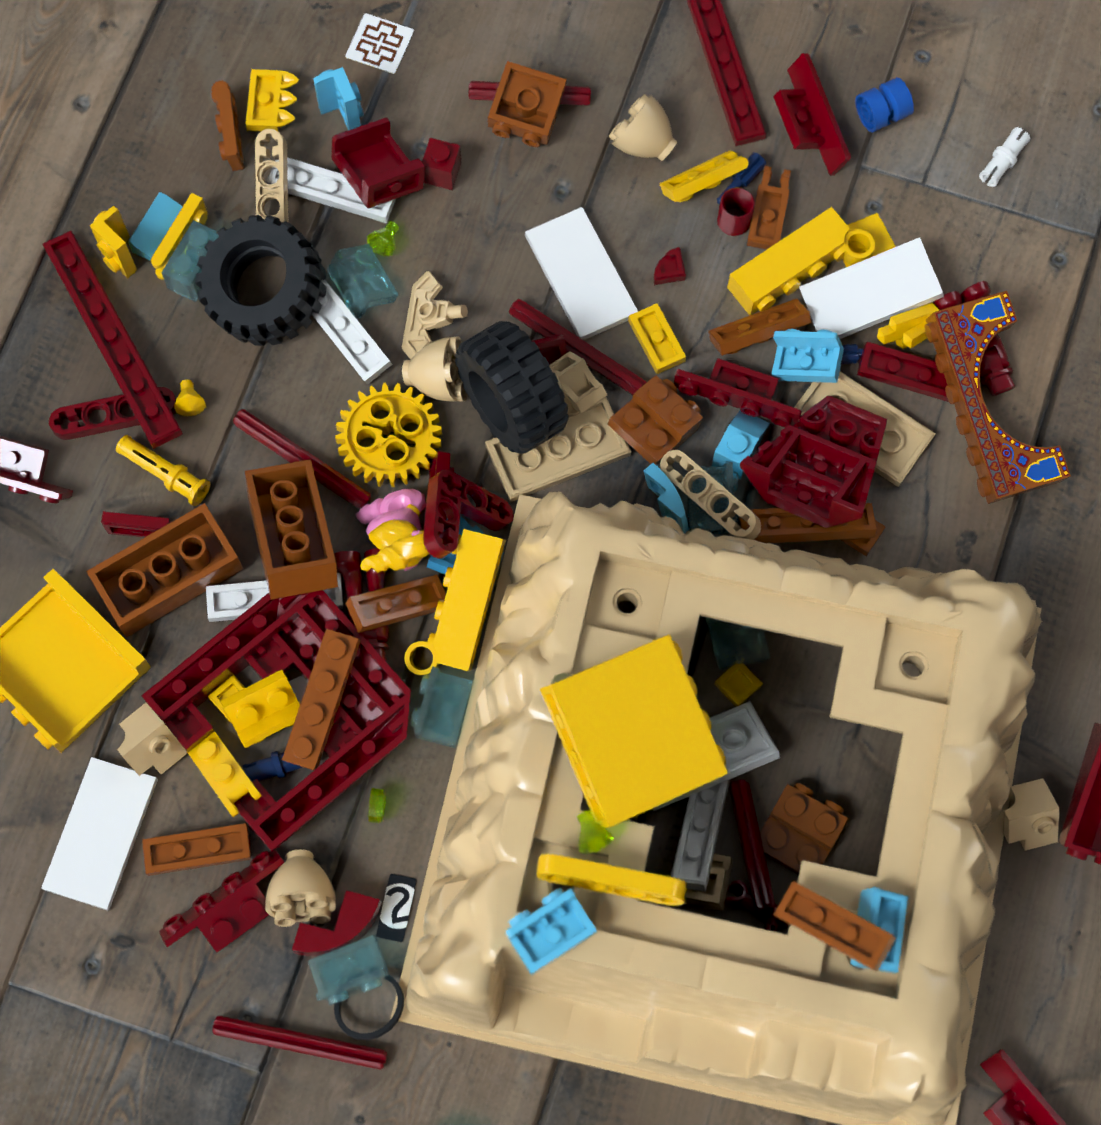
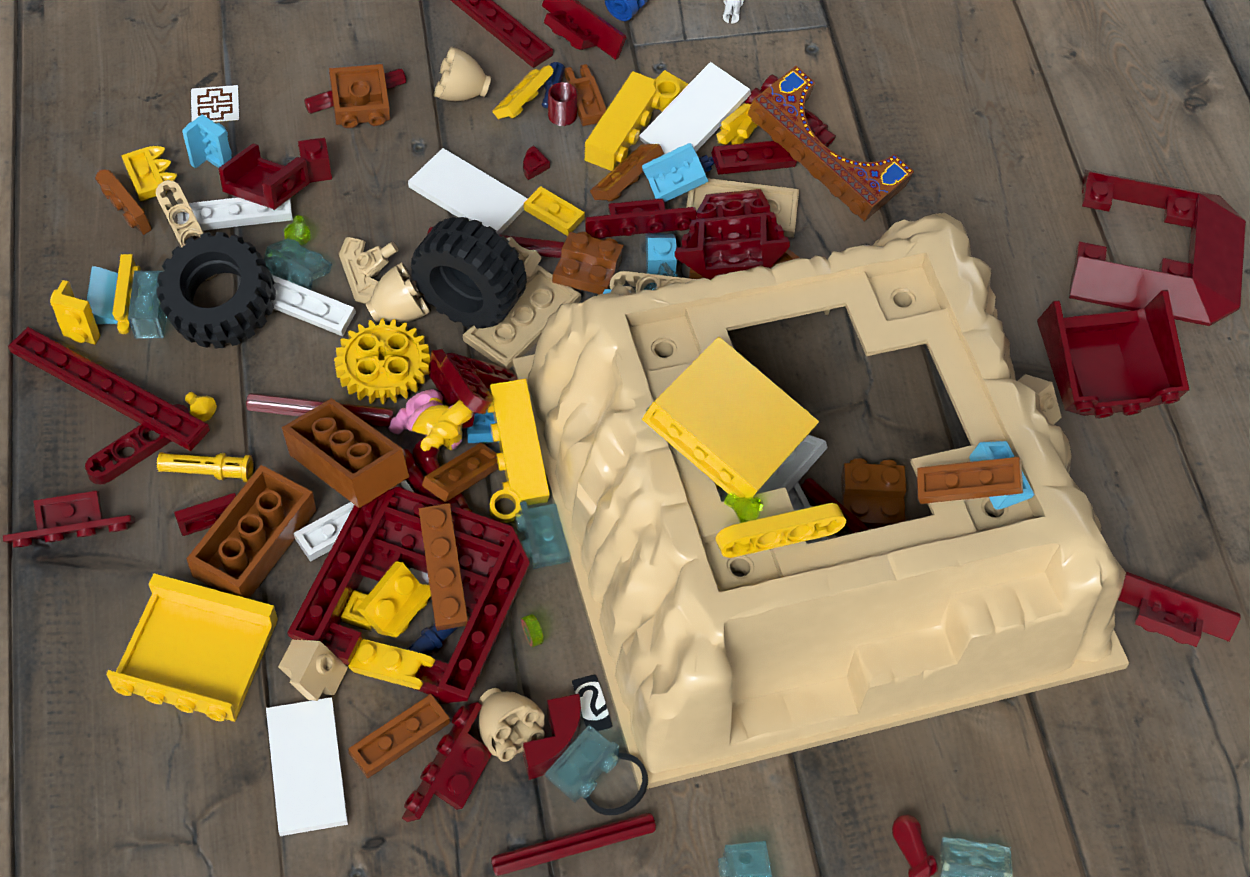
camera: 30 degrees left, 15 degrees down
(549, 930) = (757, 586): medium azure bracket -> none

